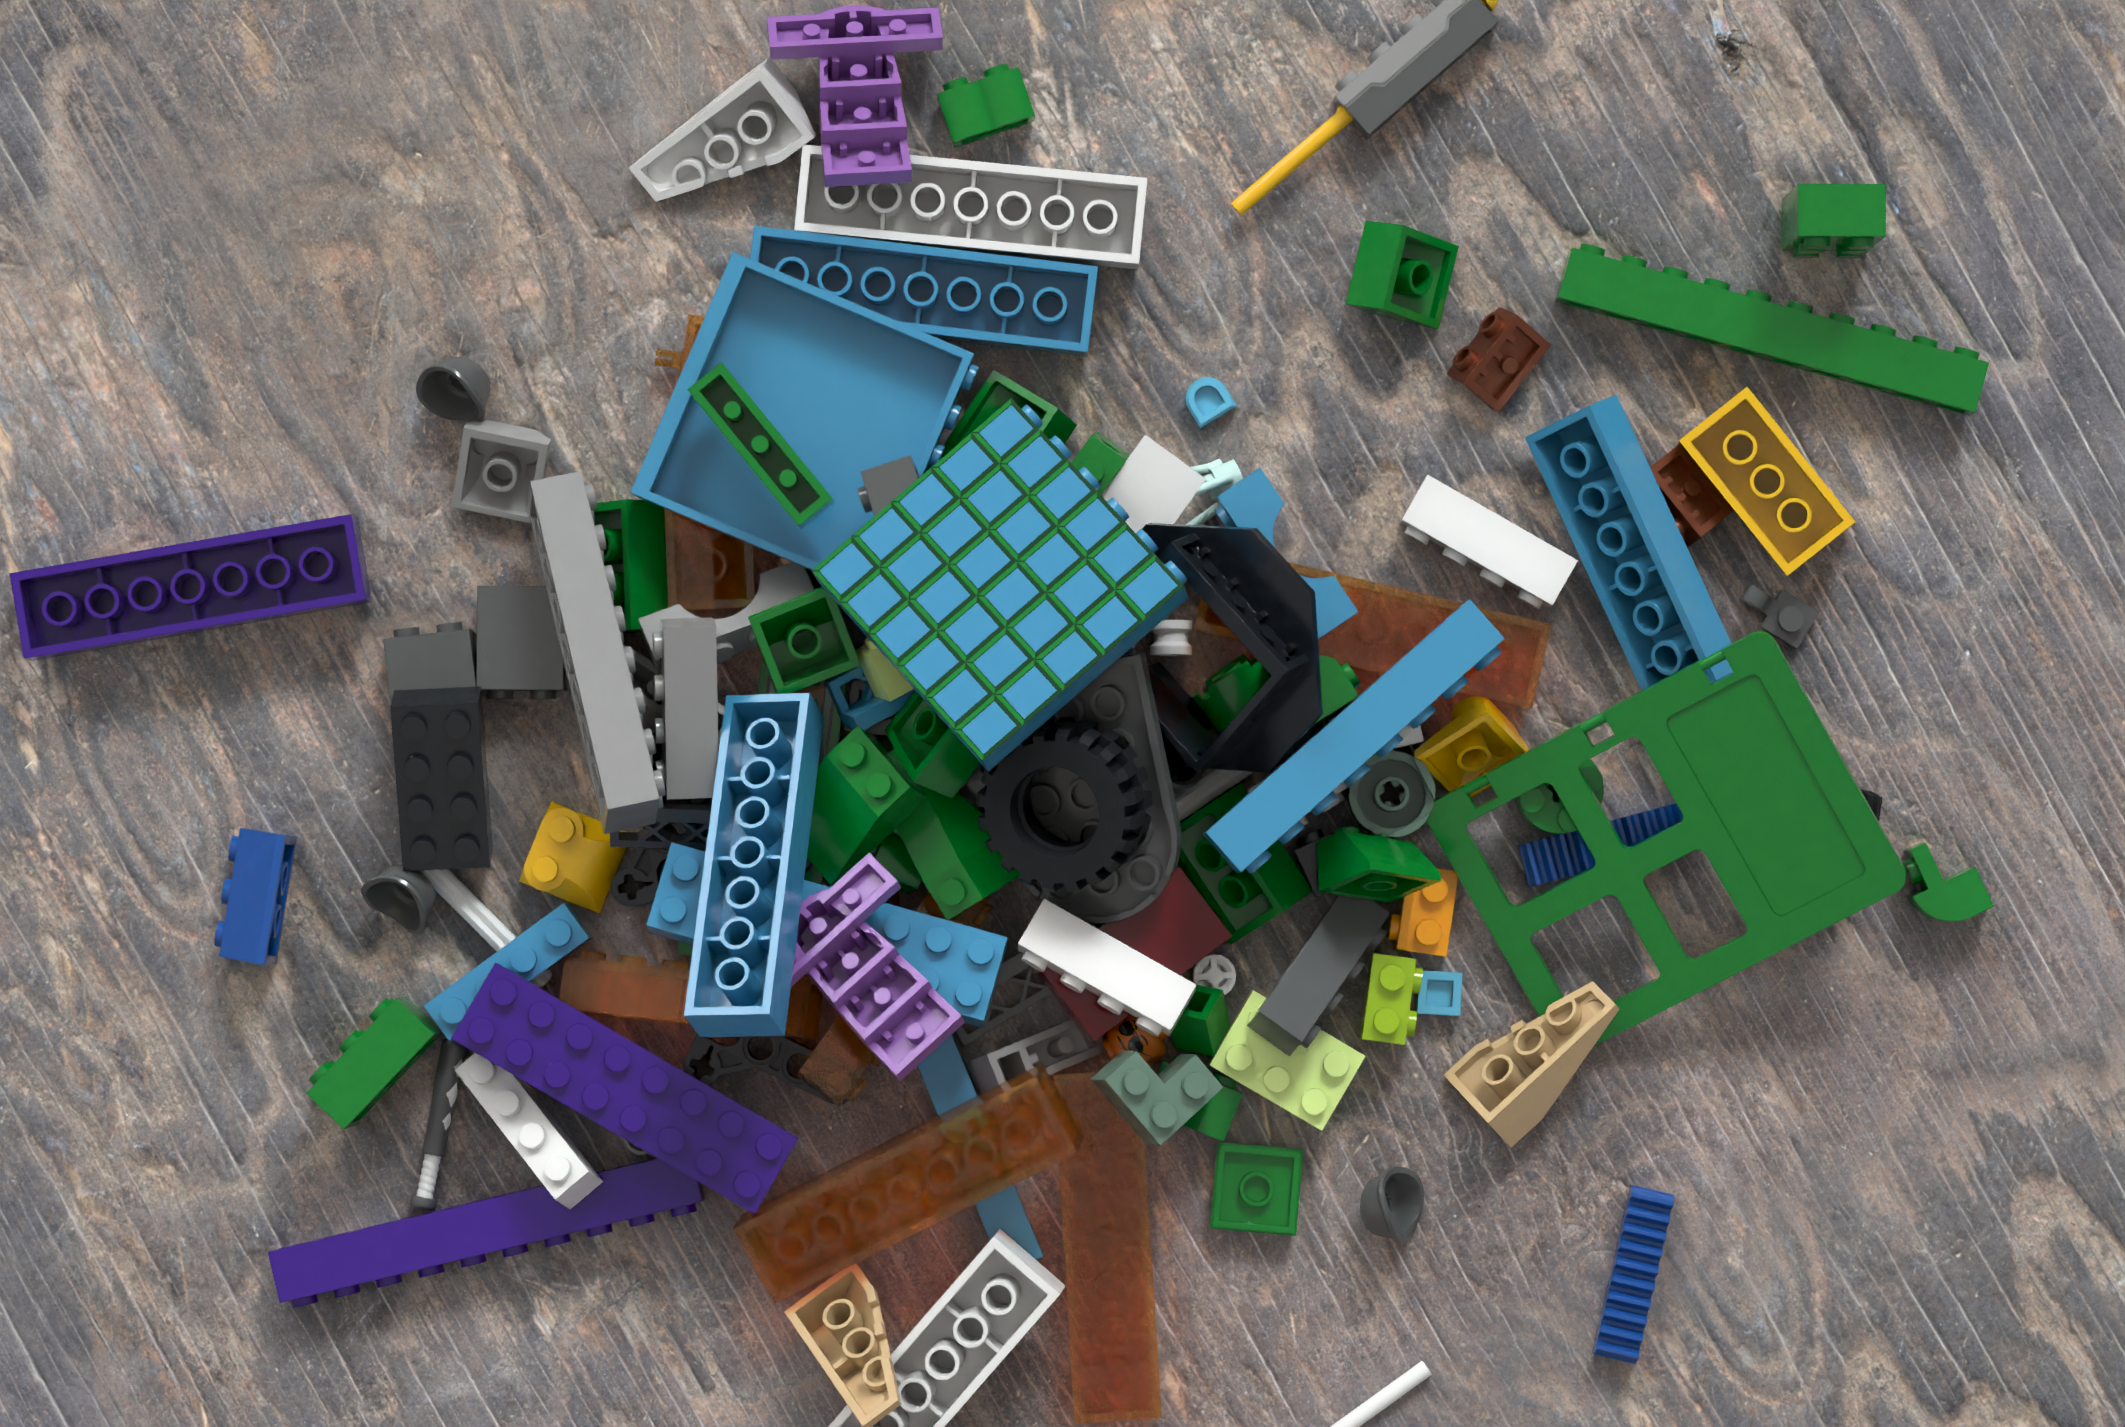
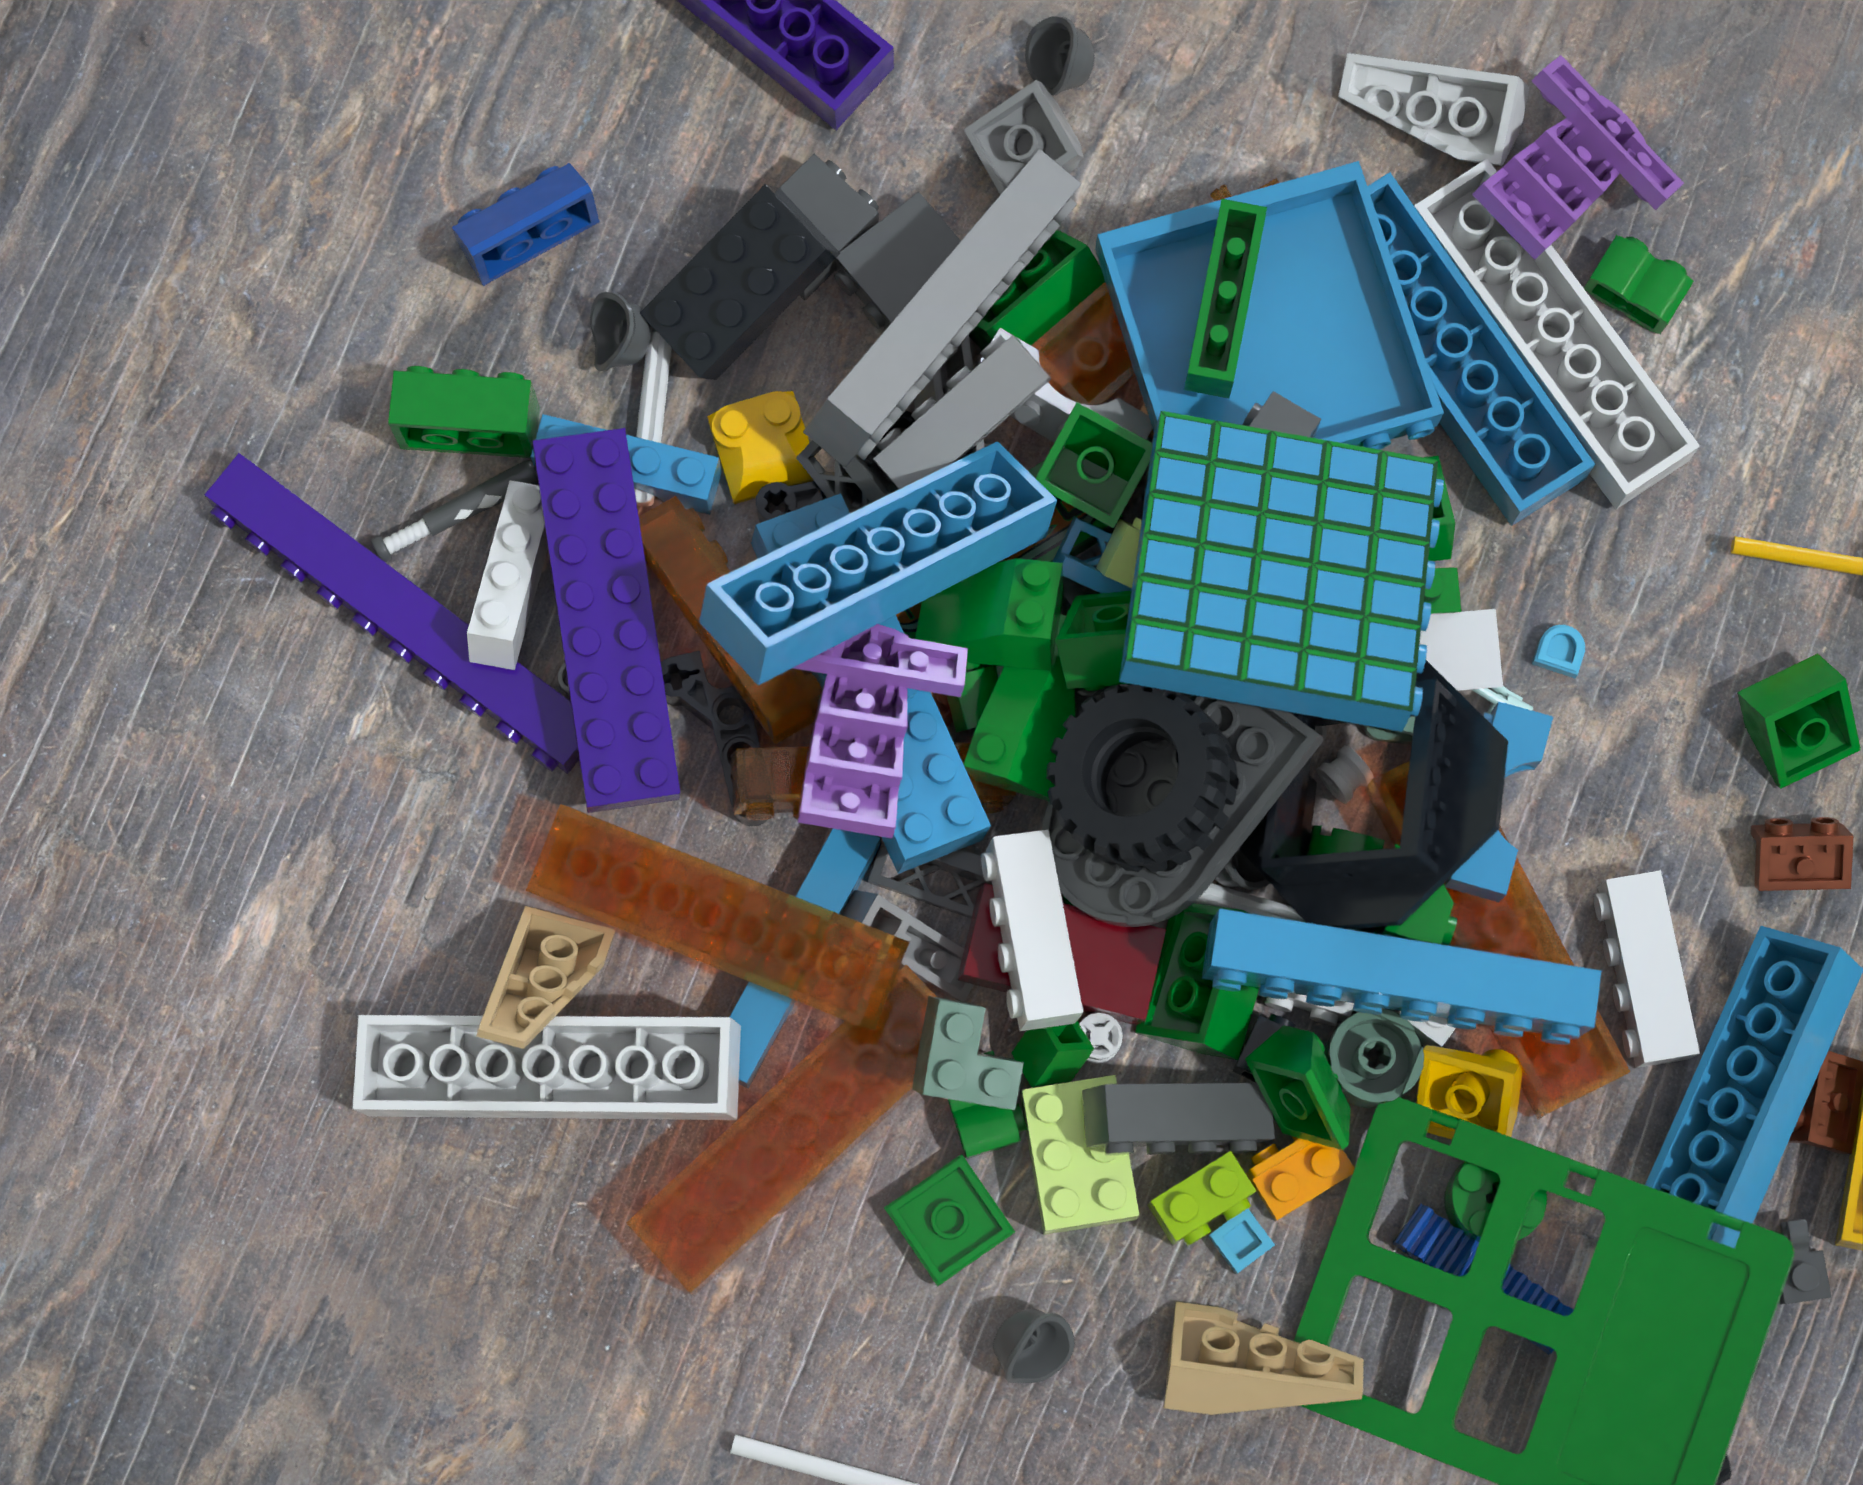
camera: 45 degrees right, 10 degrees down
(1130, 1037) = (997, 1024): orange head -> none

